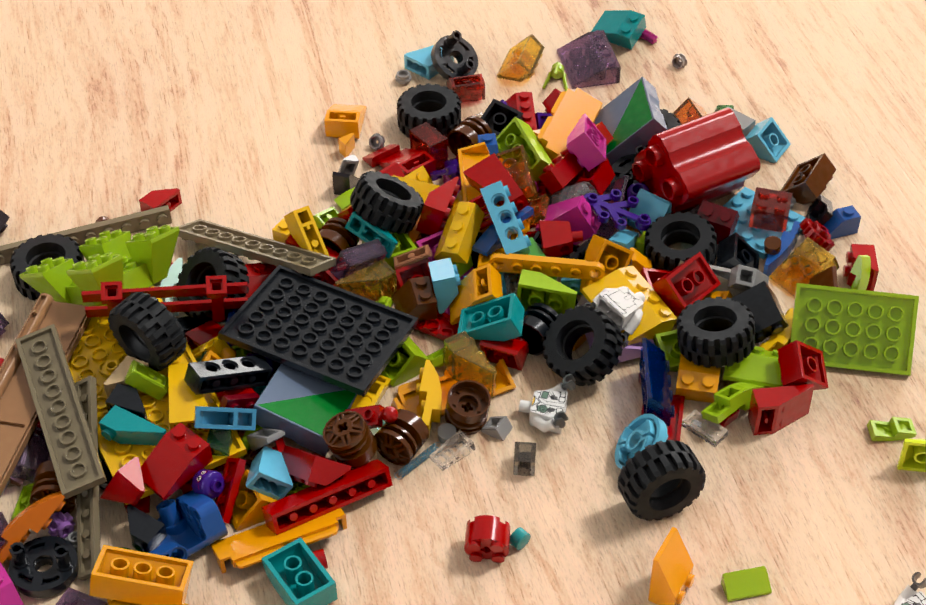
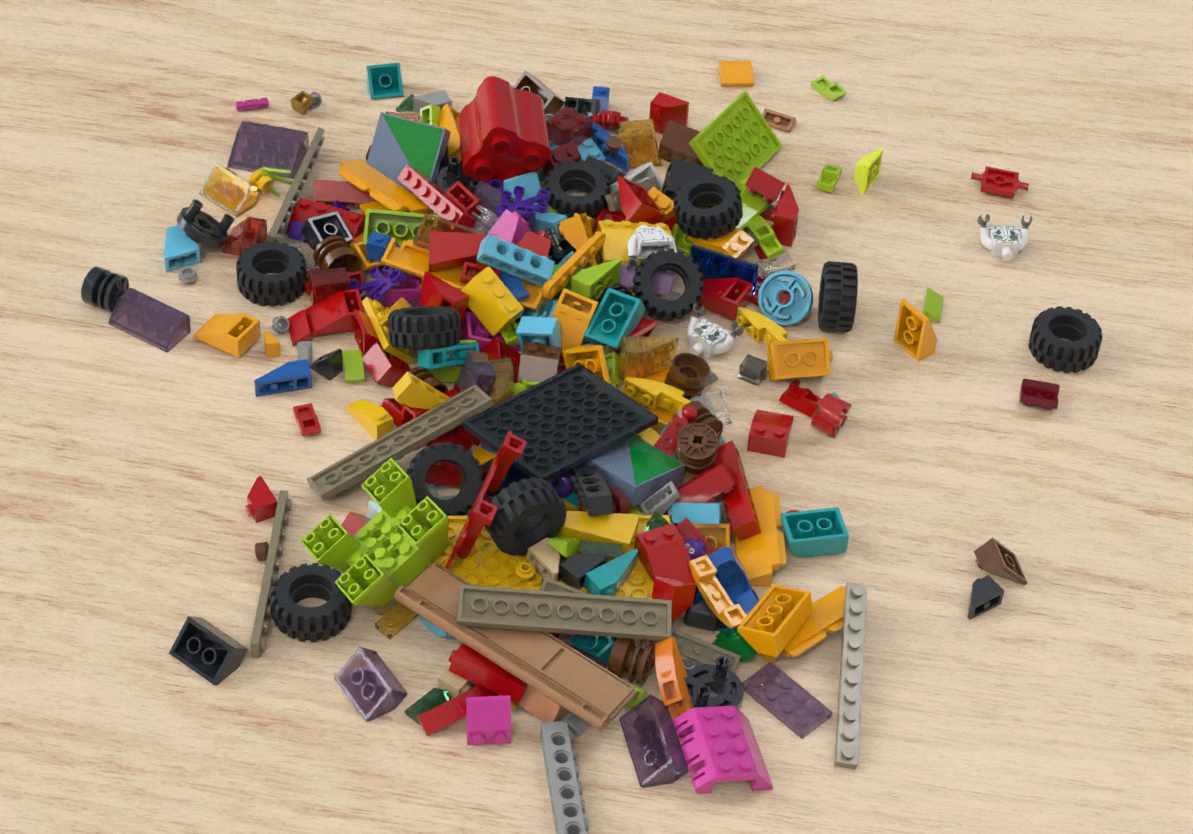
camera: 70 degrees left, 0 degrees up
(154, 518) = (714, 593): none -> light orange slope
(155, 408) = (597, 548): none -> clear green slope
(225, 418) = (645, 505): dark azure slope -> none
(277, 195) = (306, 419): none -> red slope
(312, 166) = (286, 378): none -> blue slope
(321, 217) = (374, 392): lime slope -> none
(335, 77) = (150, 320): none -> clear purple slope
(346, 40) = (103, 288): none -> black wheel
(412, 256) = (491, 342): nougat slope -> none
(427, 328) = (589, 356): none -> light orange slope
(443, 500) = (769, 433): none -> red slope
(514, 509) = (801, 399): none -> red slope
(541, 86) = (296, 186): none -> dark tan plate
(543, 68) = (260, 180): none -> yellow wheel
(550, 483) = (799, 358): none -> light orange torso
(587, 143) = (444, 178): dark pink slope -> none
(590, 453) = (760, 327): none -> yellow slope
(618, 401) = (725, 296): none -> red slope
(622, 27) = (237, 107): teal slope -> none
(667, 54) = (301, 102): none -> pearl gold slope
(739, 86) = (384, 80): none -> teal slope
(745, 277) = (654, 170): light grey slope -> none
(768, 140) = (461, 93): medium azure slope -> none
(862, 271) = (684, 110): lime slope -> none

